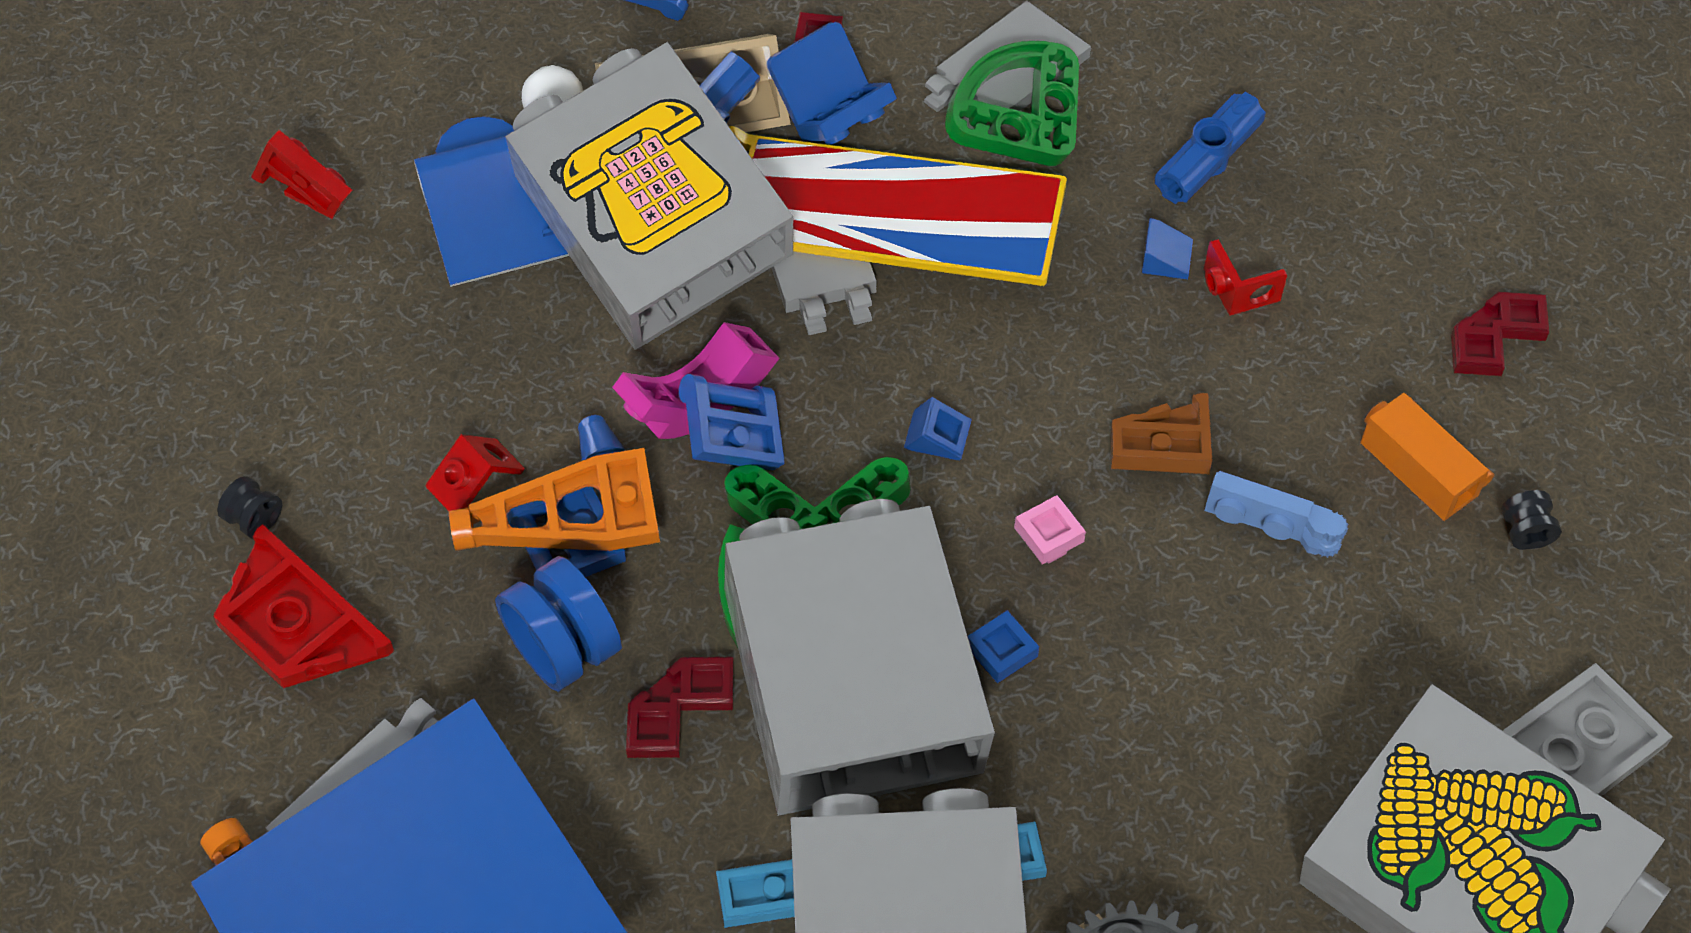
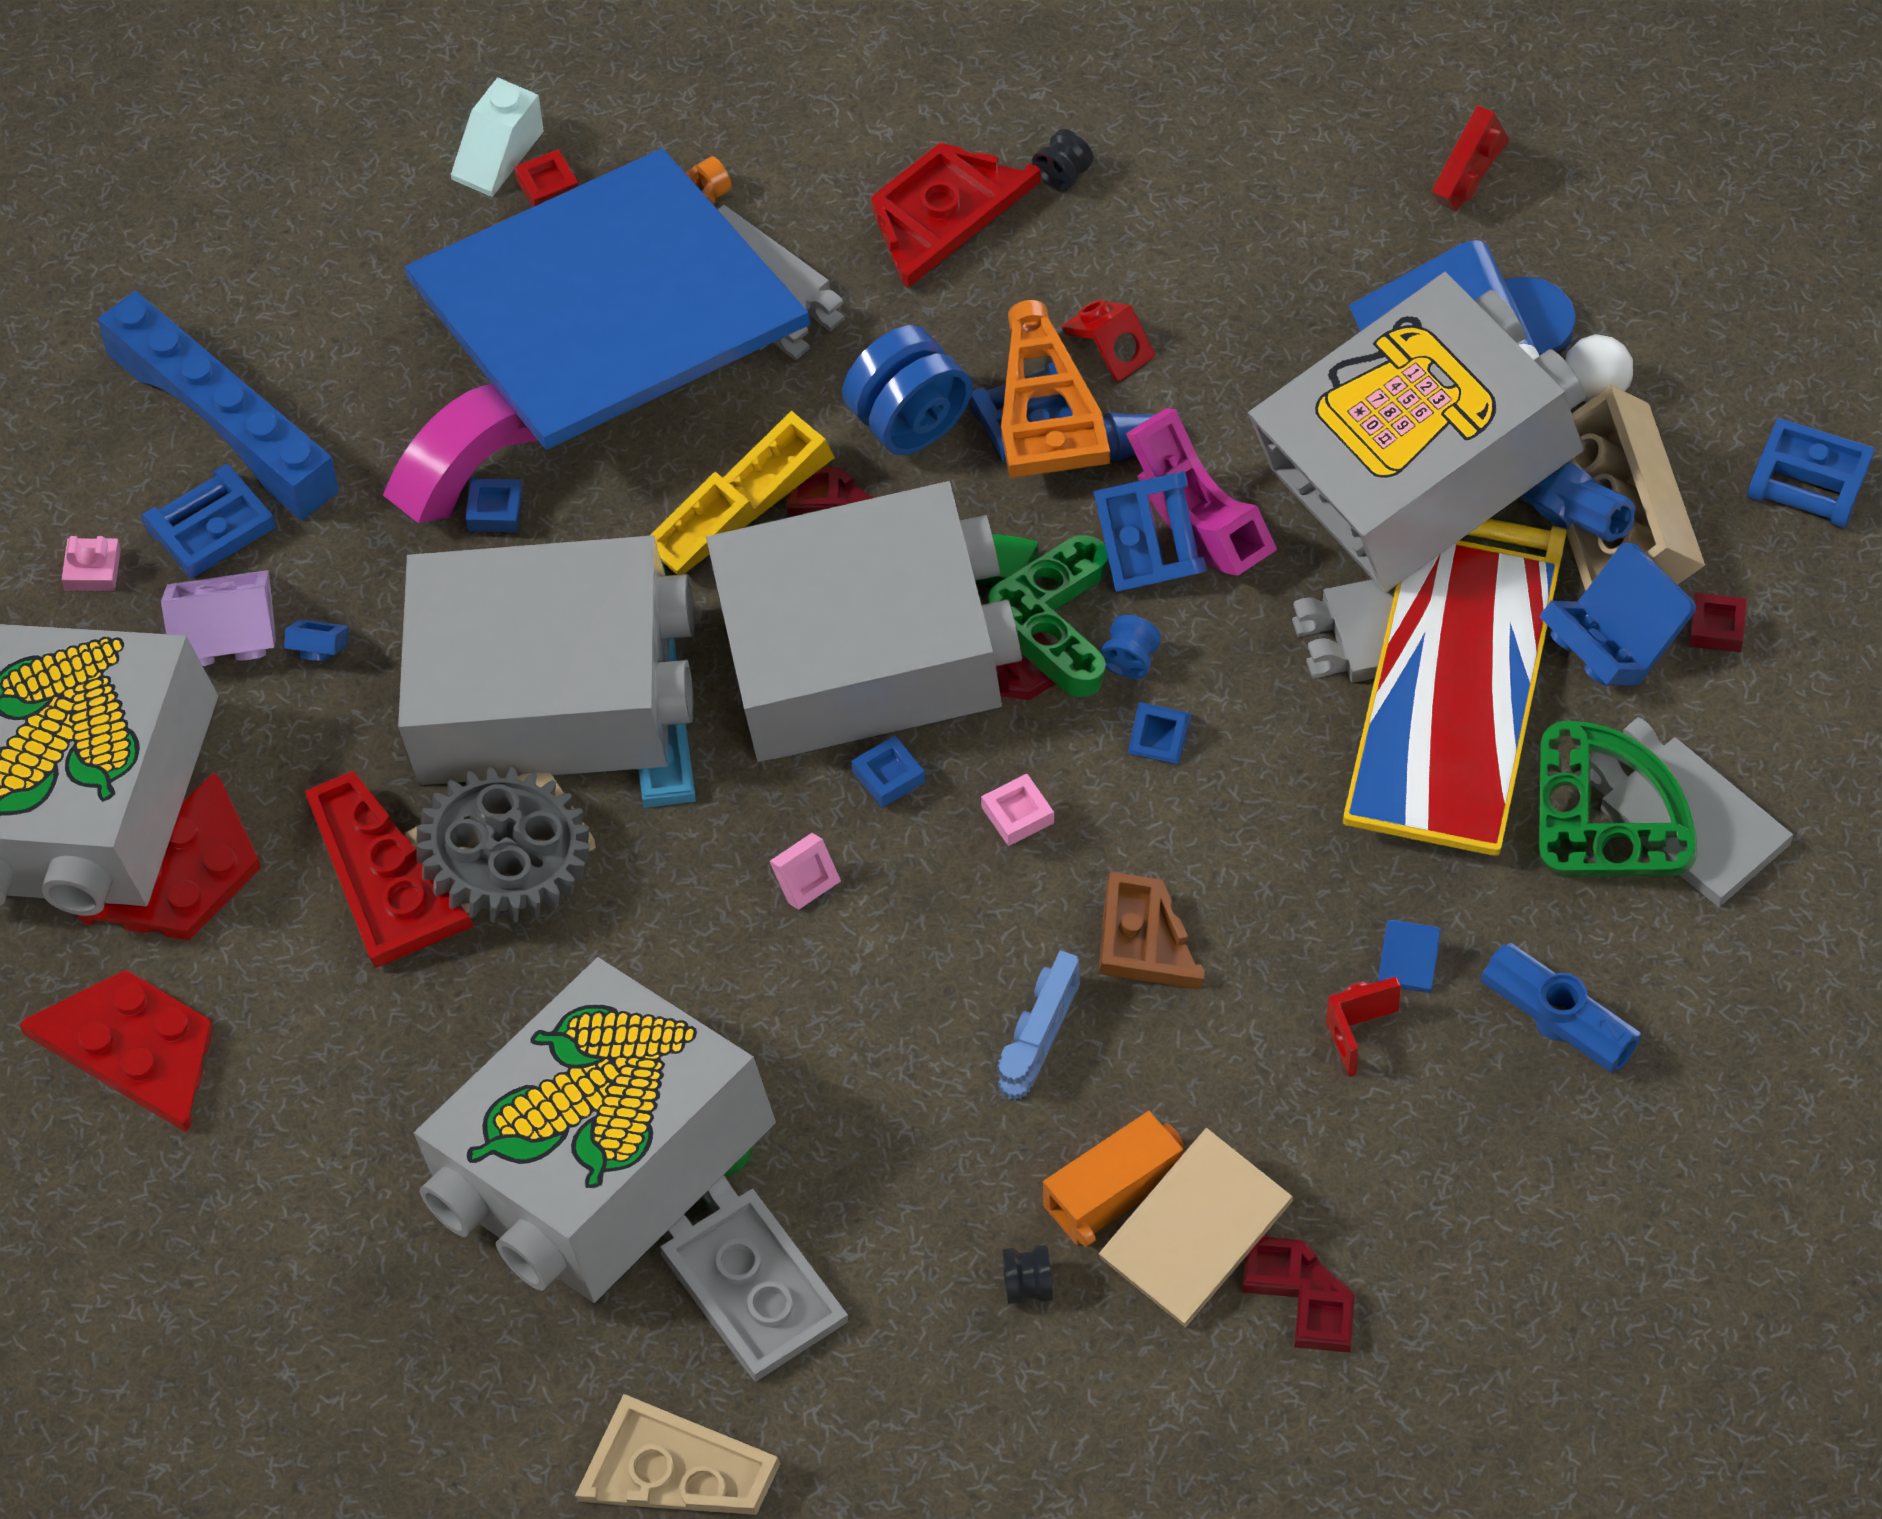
camera: 95 degrees right, 0 degrees up
(673, 789) = (750, 488): none -> yellow slope
(853, 445) = (1130, 646): none -> blue wheel
(1125, 713) = (805, 871): none -> bright pink tile
(1467, 393) = (1195, 1227): none -> tan tile

